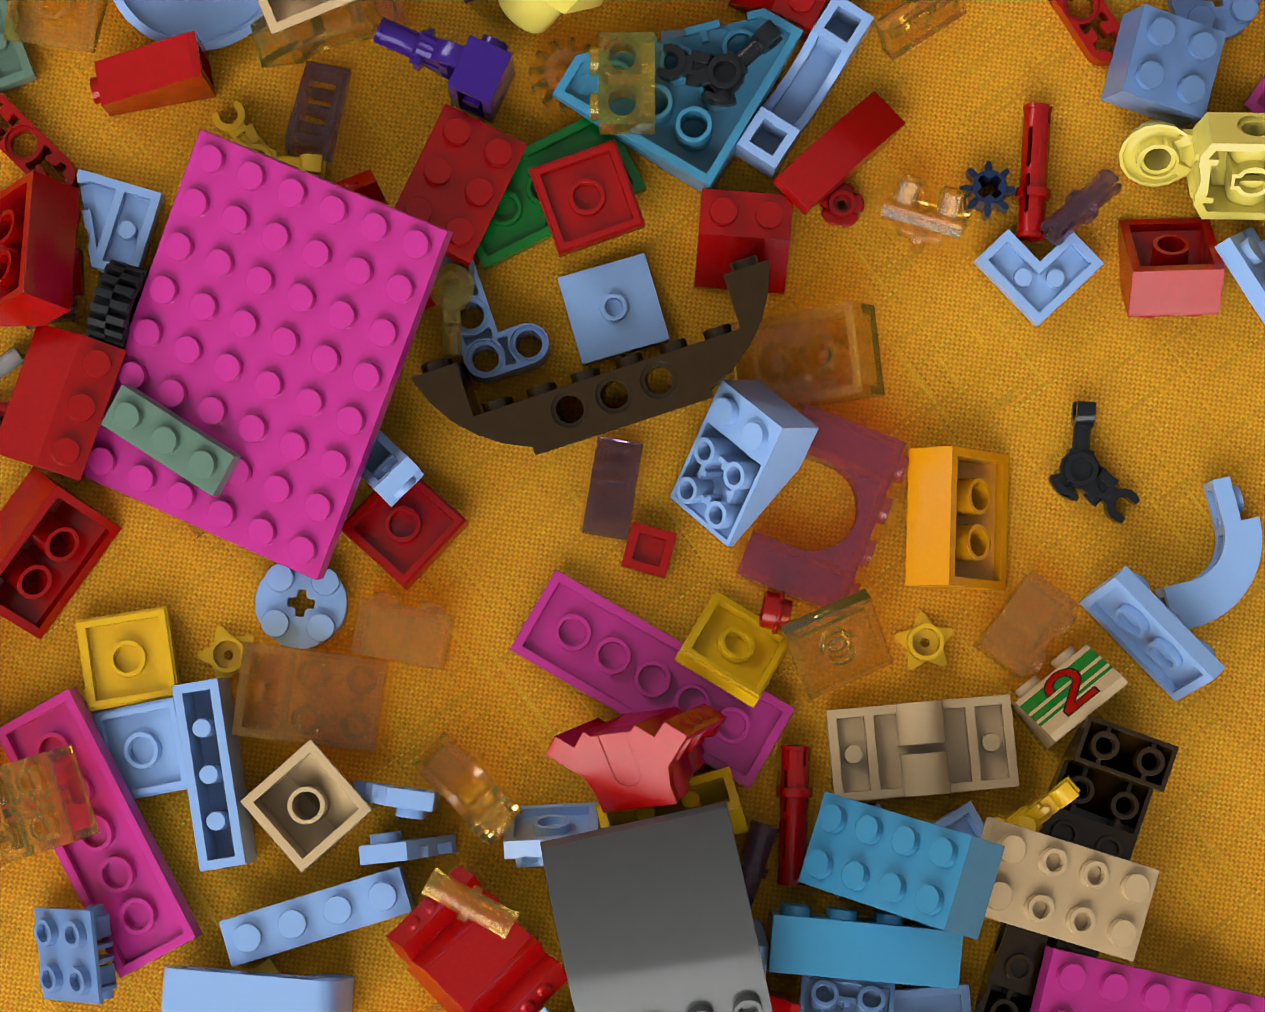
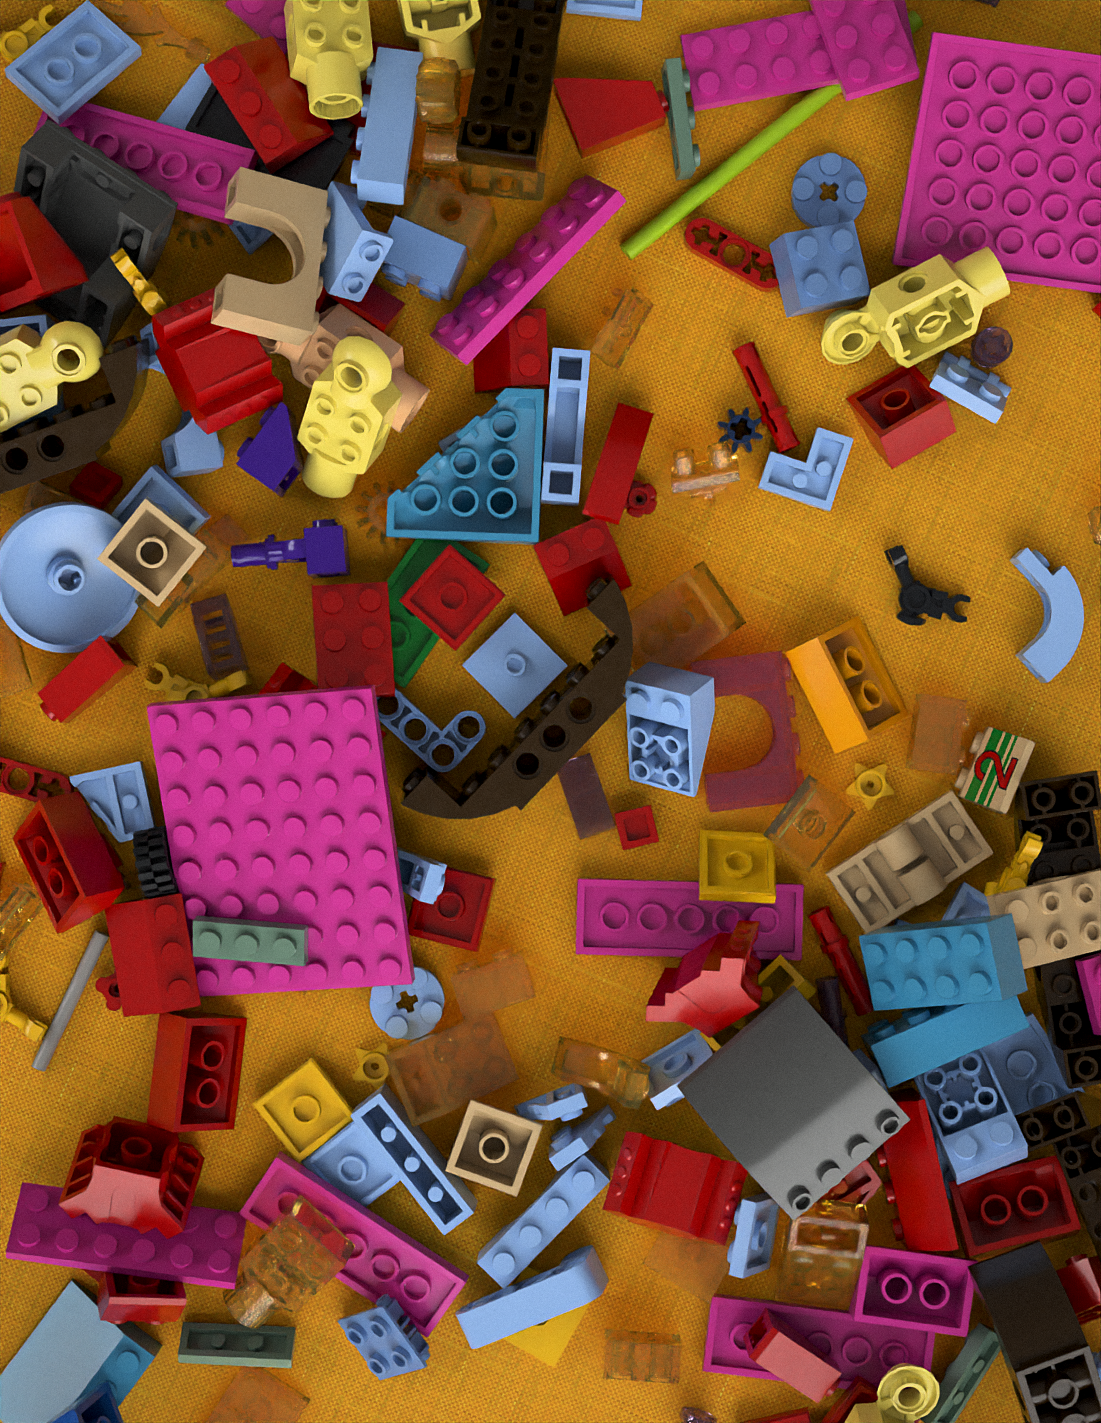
camera: 25 degrees left, 5 degrees up
(452, 293) = (394, 723): clear yellow plate -> none
(470, 903) = (651, 1156): clear yellow pin -> none
(633, 83) = (443, 498): clear yellow brick -> none
(720, 72) = (500, 455): black piece -> none
(775, 611) = (751, 823): red plate -> none
(1081, 206) = (814, 405): pin -> none
(1152, 634) = (1032, 693): light blue plate -> none

